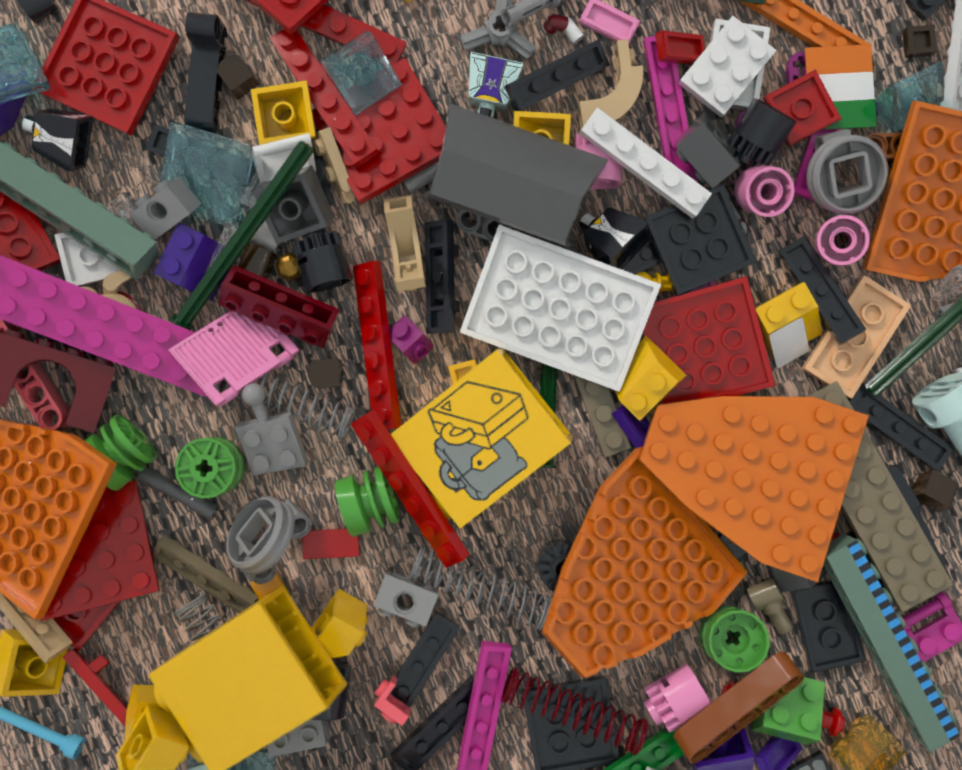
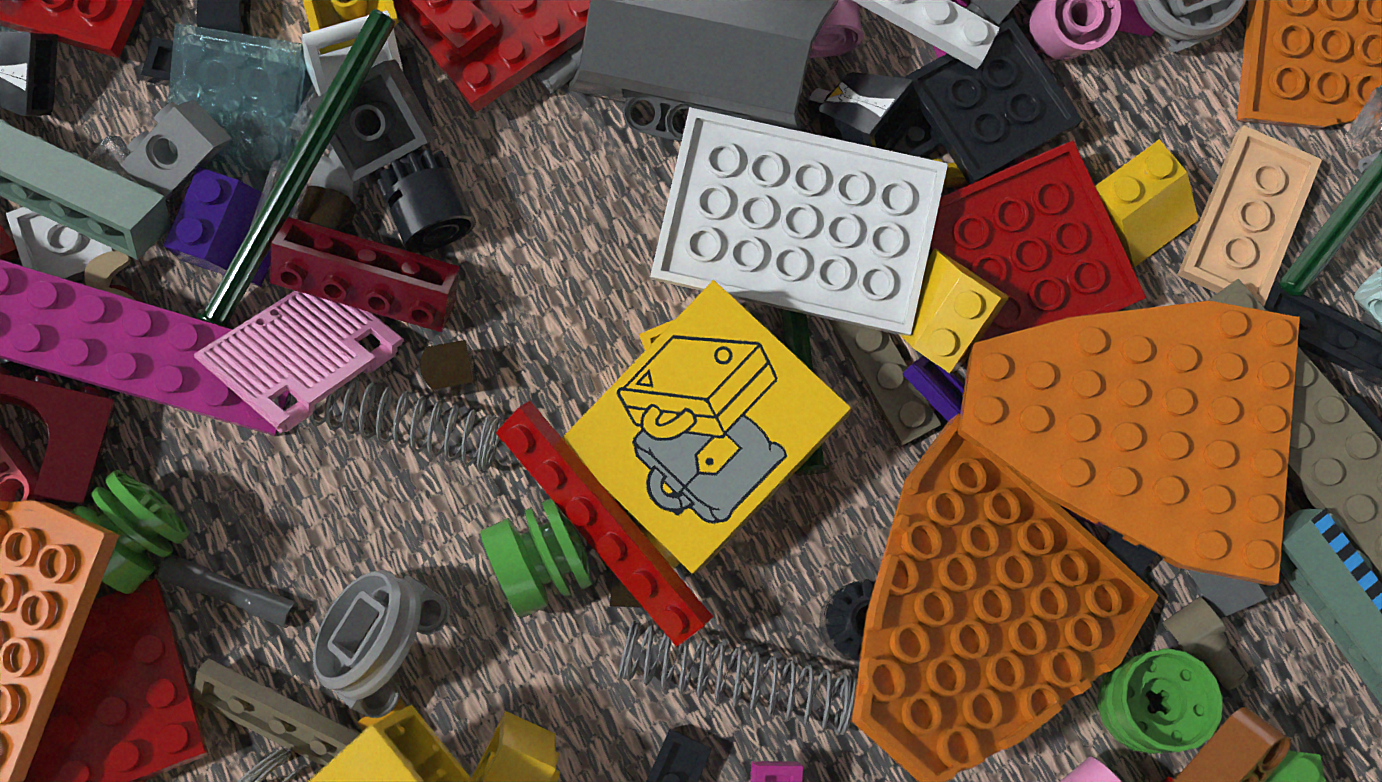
camera: 10 degrees left, 10 degrees down
(221, 454) = (288, 559): bright green wheel -> none
(269, 441) = (368, 483): light grey plate -> none
(288, 267) = (375, 220): pearl gold tile -> none
(330, 544) = (484, 640): red tile -> none
(335, 169) = (430, 62): tan hinge -> none
(377, 342) = (522, 309): red plate -> none
(404, 243) = (549, 158): tan arch -> none
(410, 339) = (574, 304): magenta bracket -> none
(423, 599) = (589, 706): light grey brick -> none
(440, 276) = (610, 203): black hinge -> none
(789, 342) = (1153, 235): white sticker -> none
(826, 628) = (1299, 669): black tile -> none
(832, 304) = (1211, 174): black plate -> none
(852, 229) = (1204, 55): bright pink gear -> none

